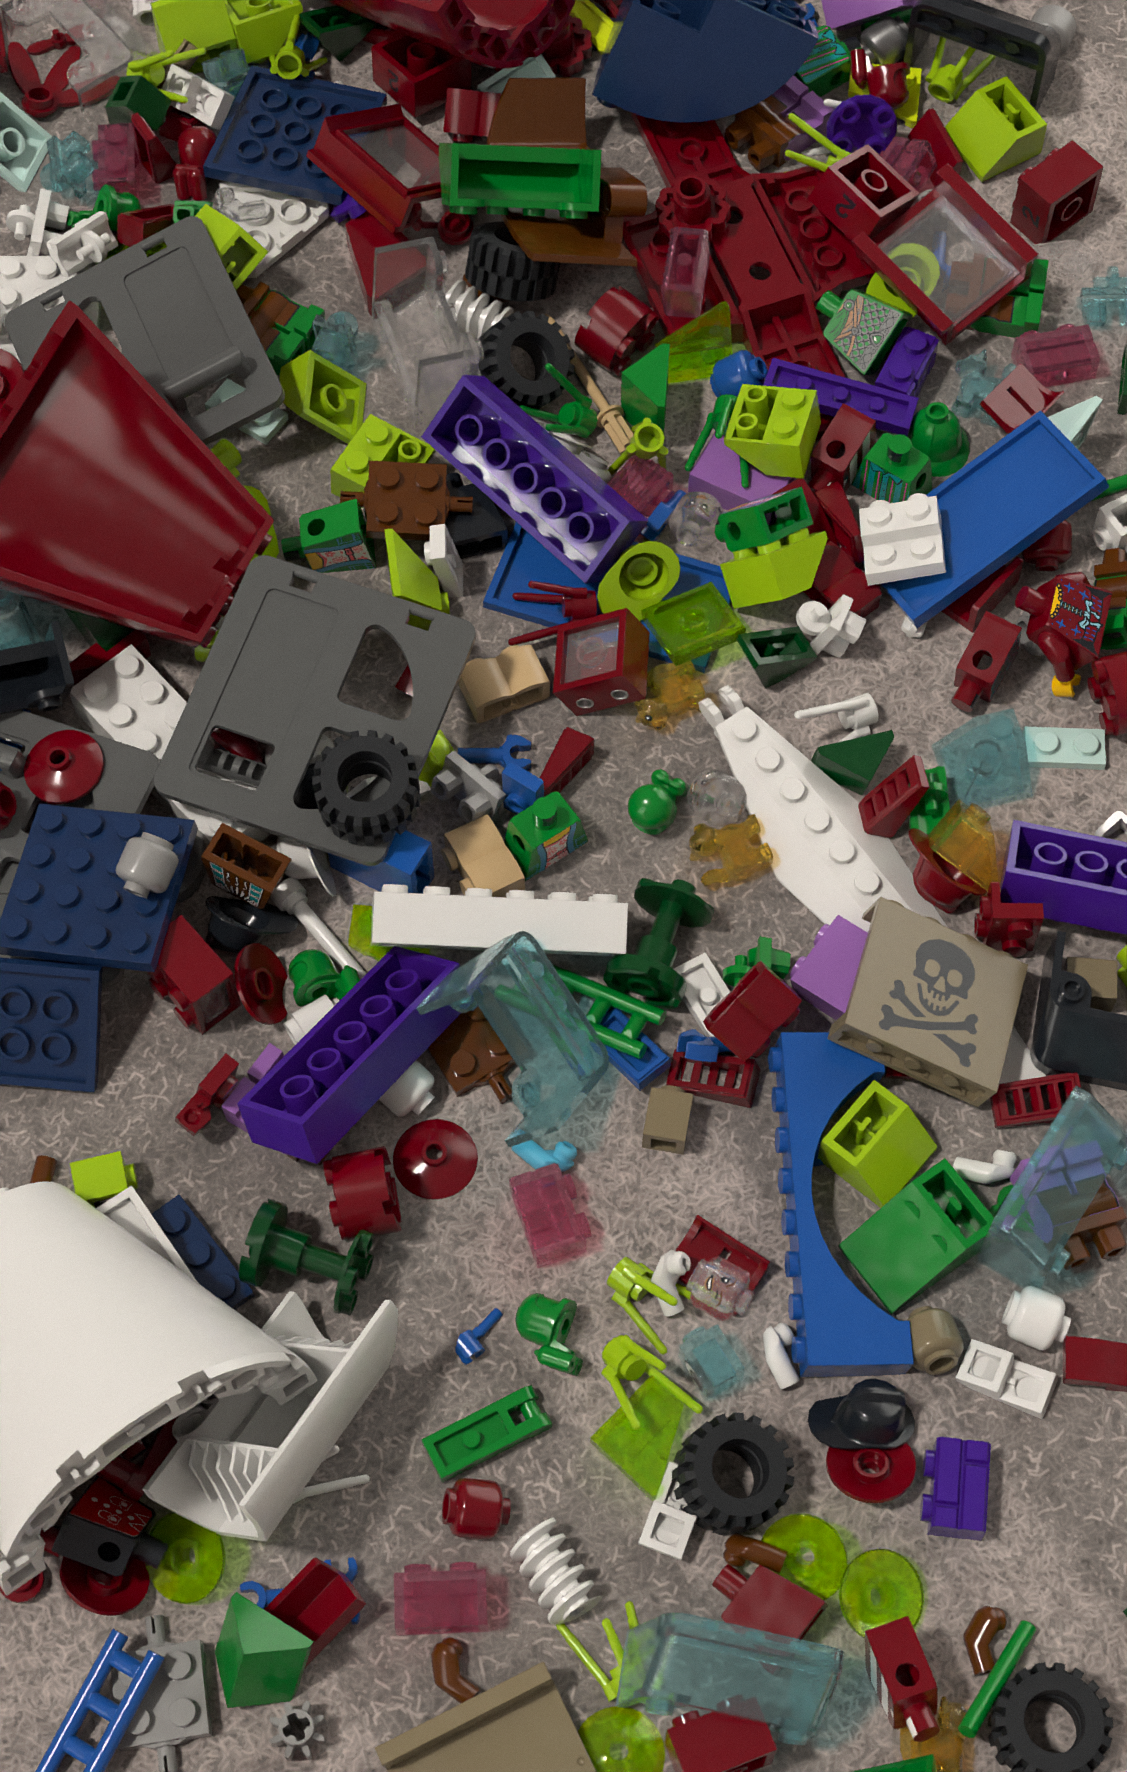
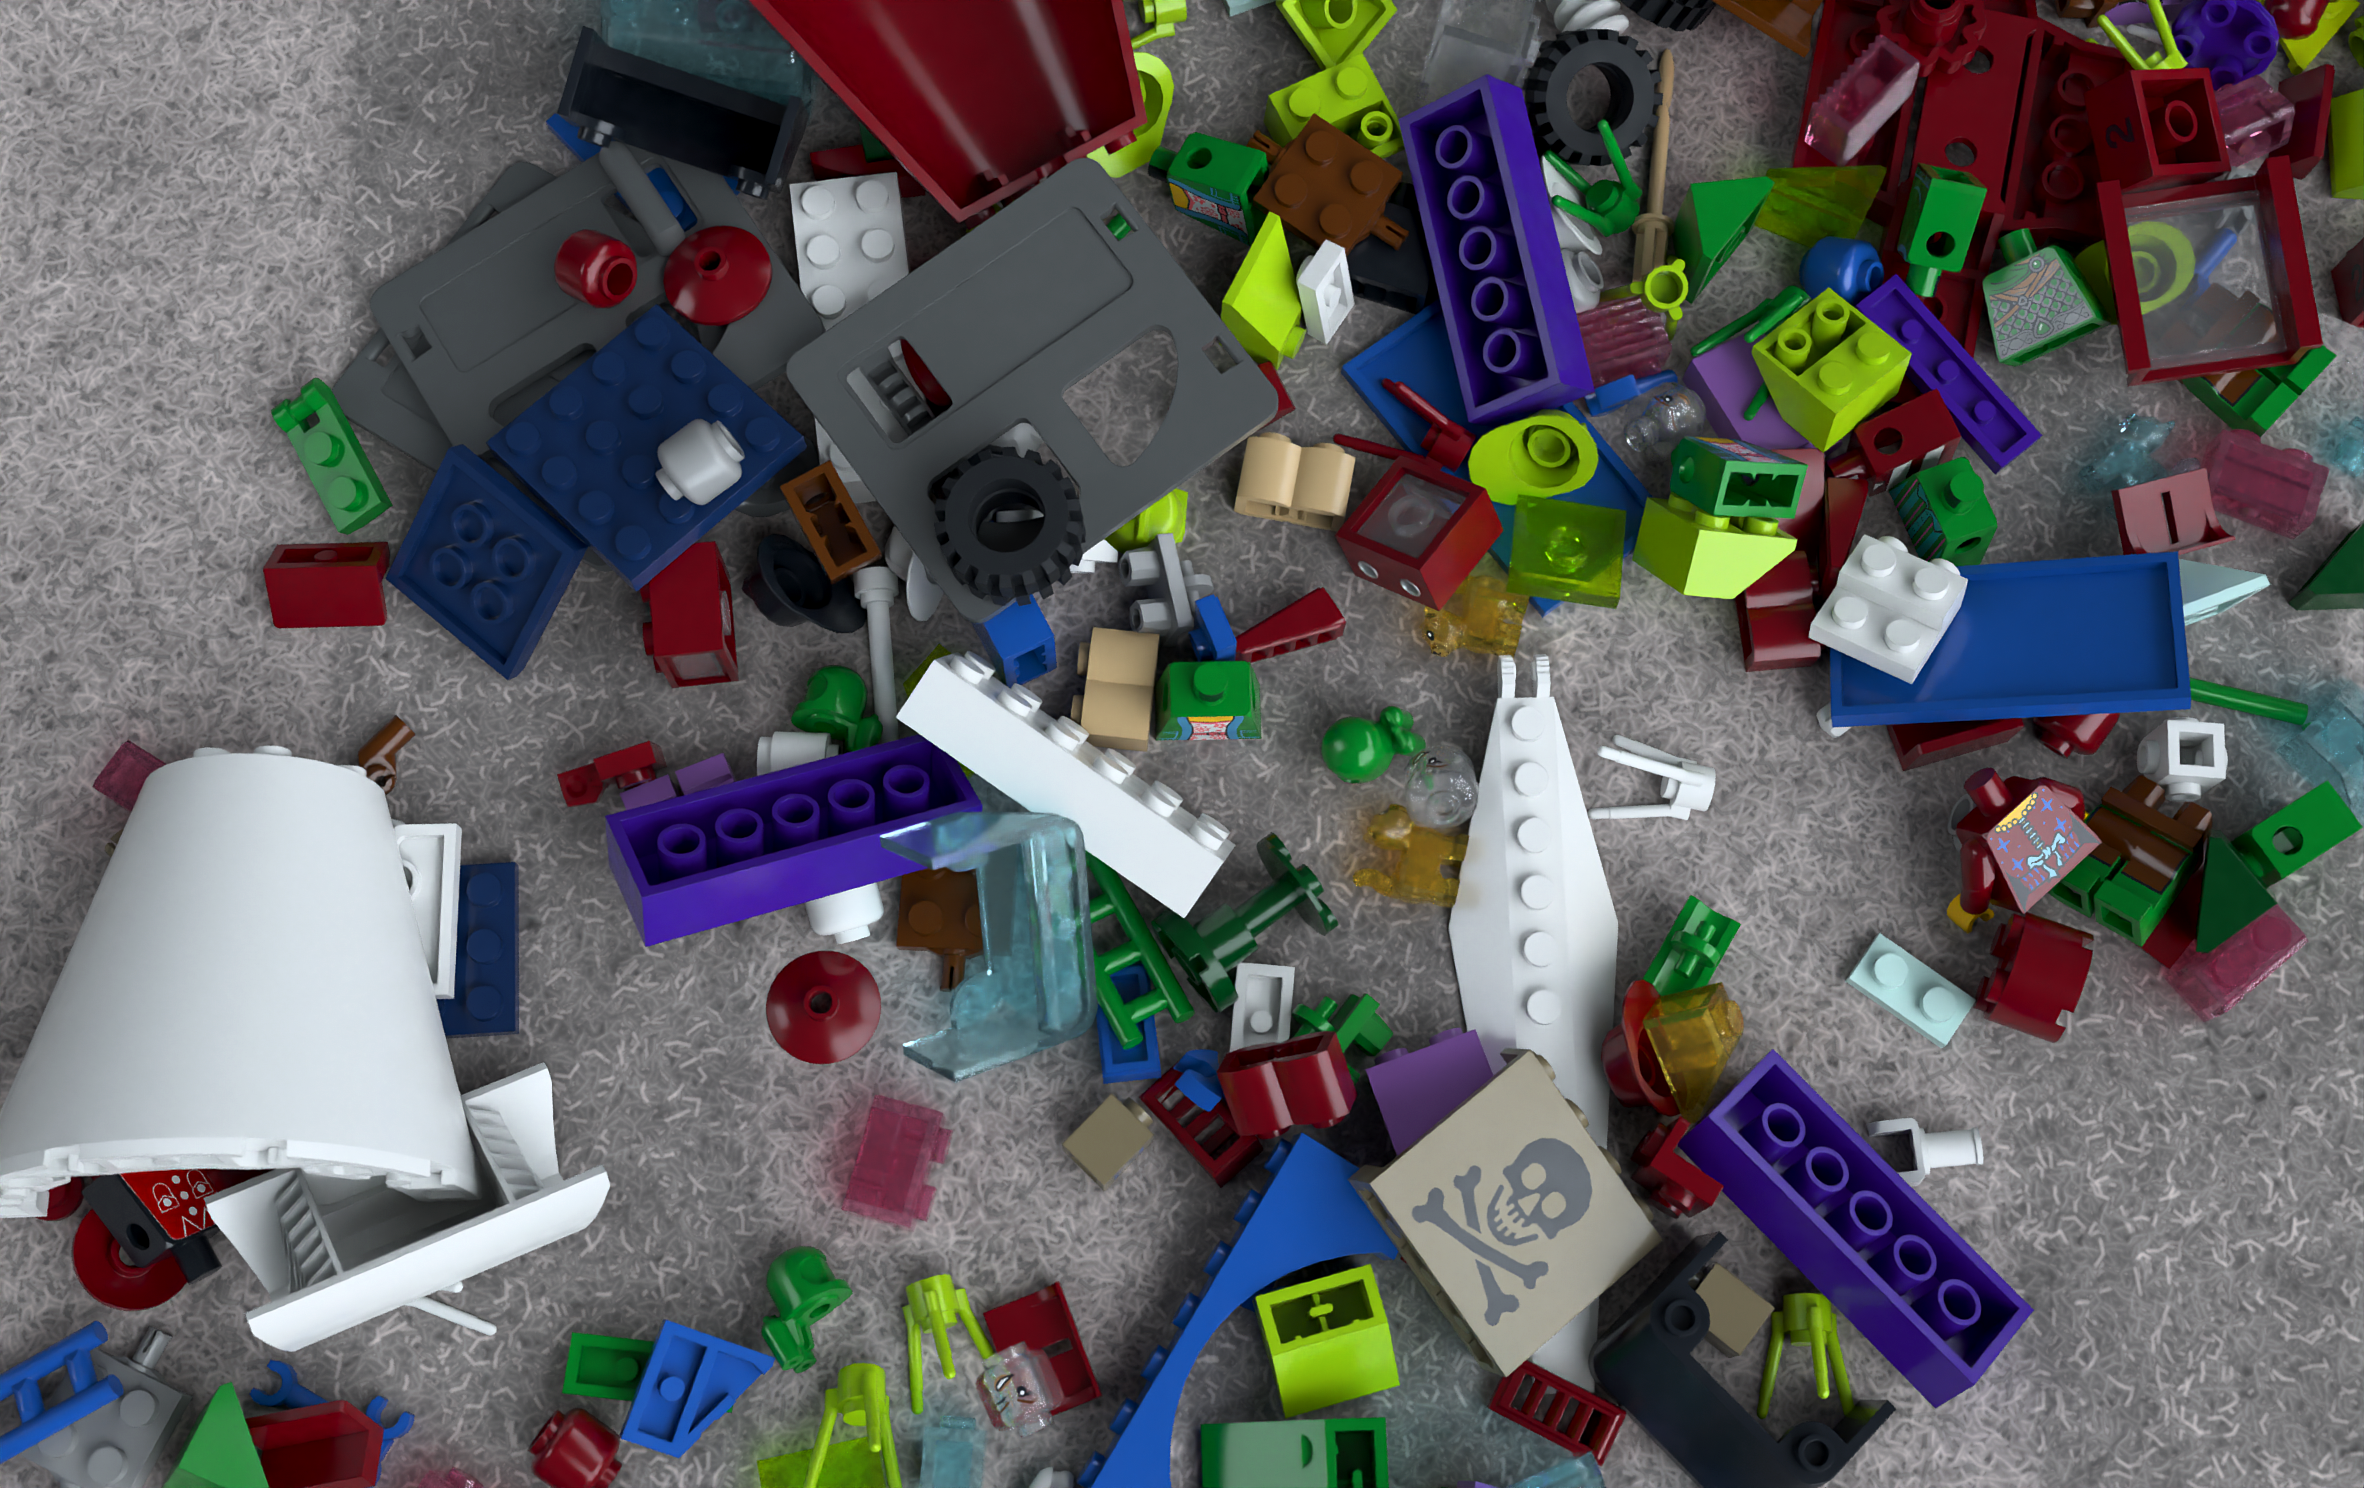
camera: 30 degrees right, 10 degrees up
(102, 1177) = (440, 793): lime brick -> none
(178, 1576) = (222, 1299): clear neon green dish -> none
(261, 983) = (764, 674): dark red dish -> none
(292, 1252) = (564, 999): dark green piece -> none
(363, 1193) = (702, 1002): dark red brick -> none
(468, 1341) = (705, 1252): blue hand -> none
(499, 755) = (1230, 567): blue bar -> none
(518, 1417) = (687, 1387): none -> blue wing
(538, 1157) = (943, 1095): medium azure arm -> none
(617, 330) = (1733, 122): dark red brick -> none
(666, 1275) = (973, 1329): white arm -> none
(776, 302) = (1943, 203): none -> green torso
(776, 653) = (1639, 650): dark green slope -> none
(833, 627) = (1729, 662): white hips -> none
(854, 760) = (1639, 846): dark green slope -> none
(893, 800) = (1641, 929): dark red slope -> none
(909, 362) = (2063, 382): dark purple brick -> none
(940, 437) = (2032, 502): green hat -> none
(986, 761) = (1796, 948): clear light blue slope -> none
(986, 1172) = (1438, 1457): white arm -> none
(1000, 642) = (1915, 815): dark red torso -> none

